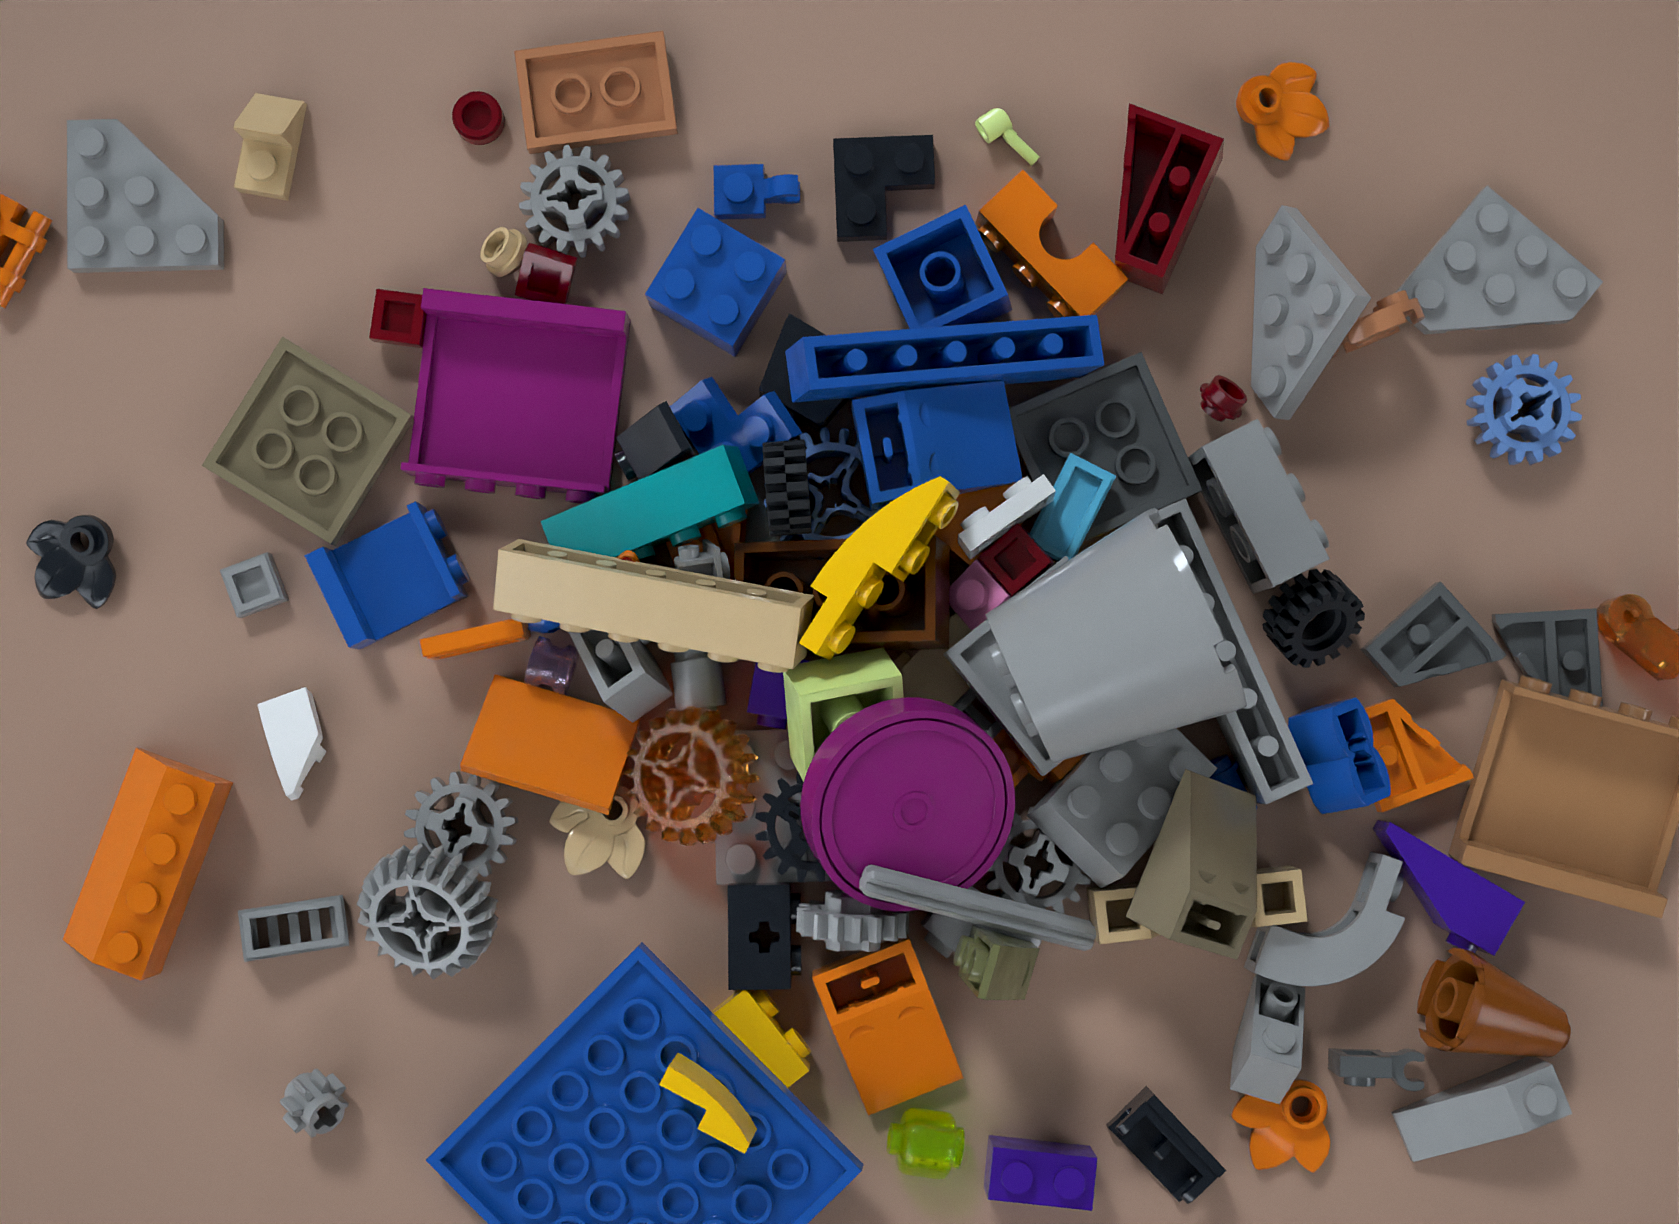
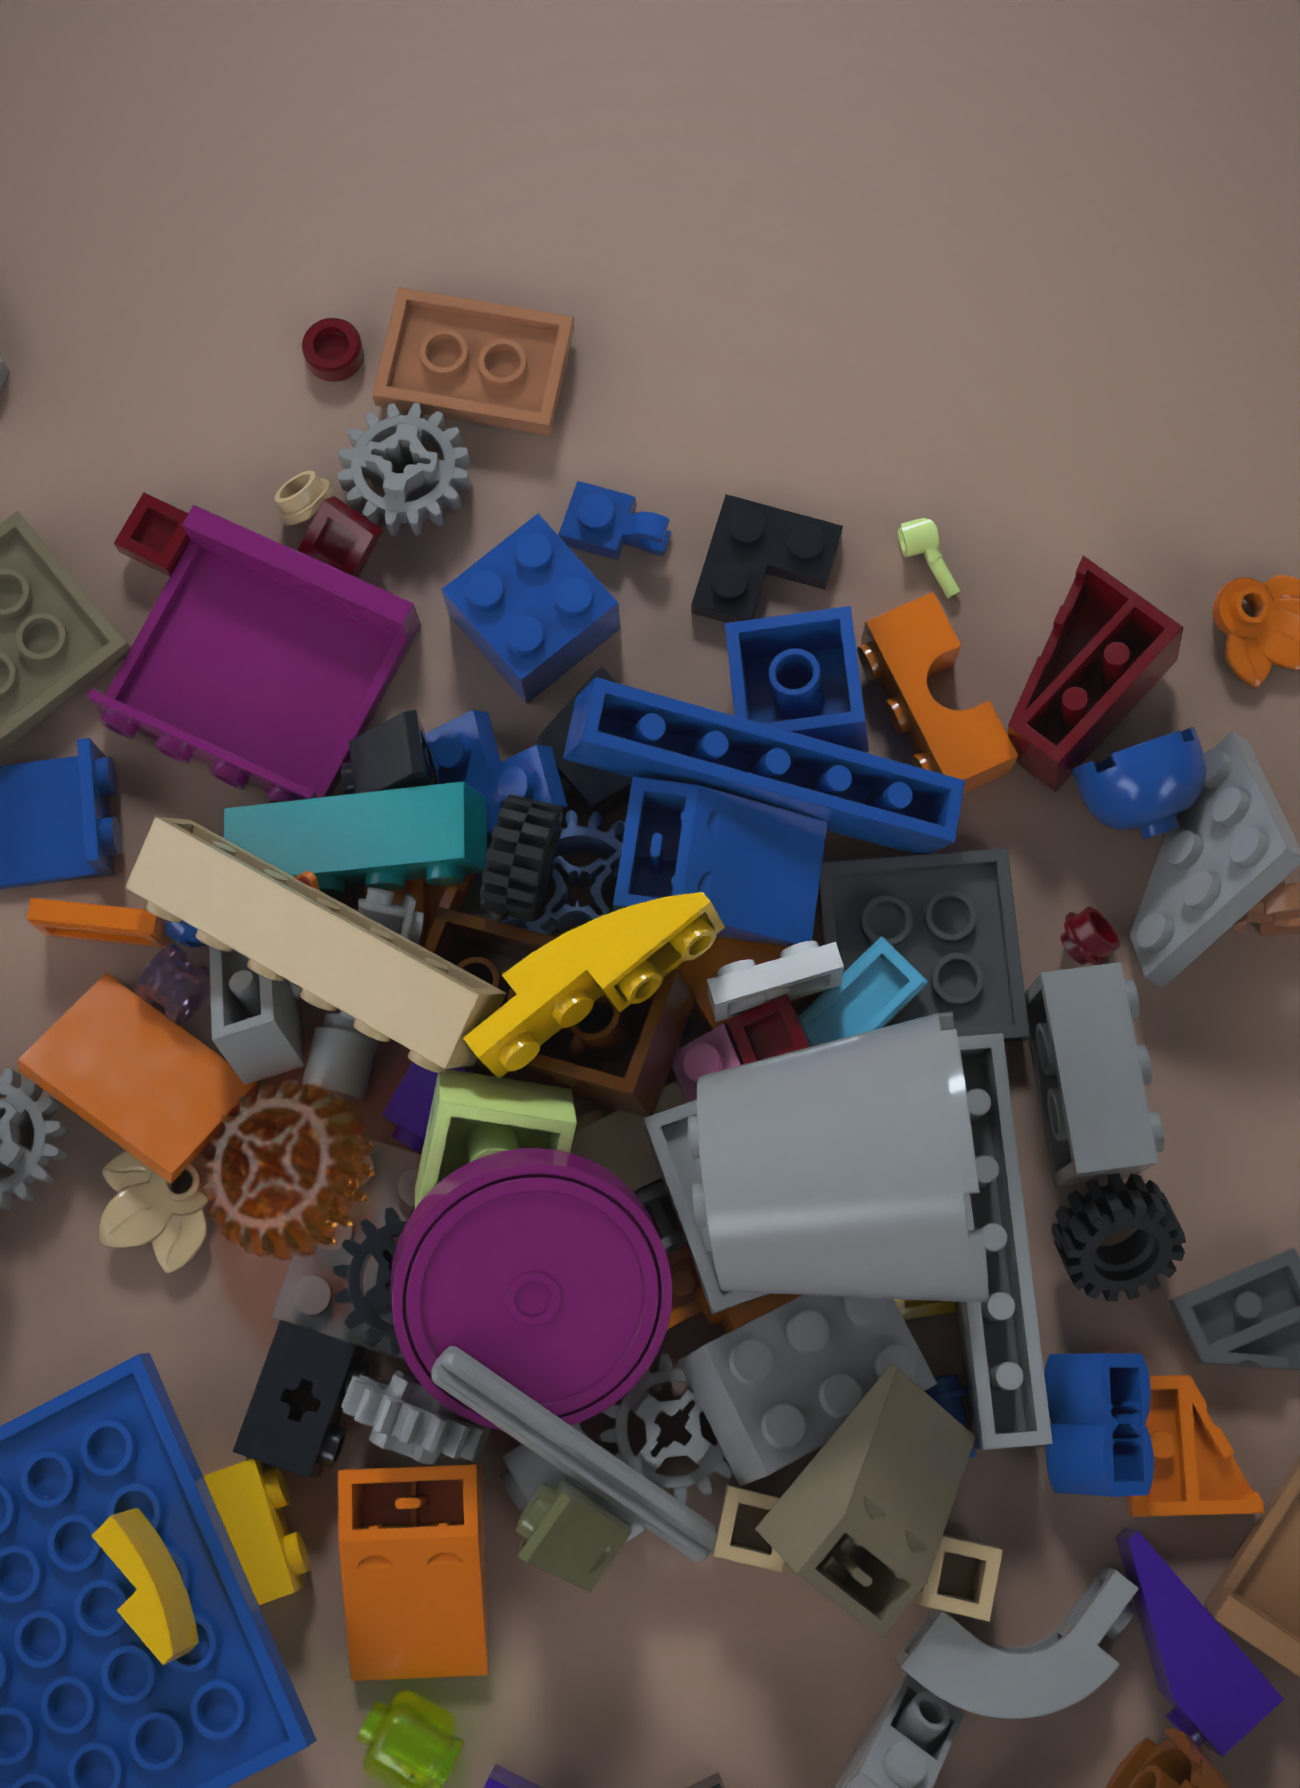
camera: 25 degrees right, 10 degrees down
(270, 145) = (91, 306): tan slope -> none
(1229, 268) = (1145, 783): none -> blue cylinder

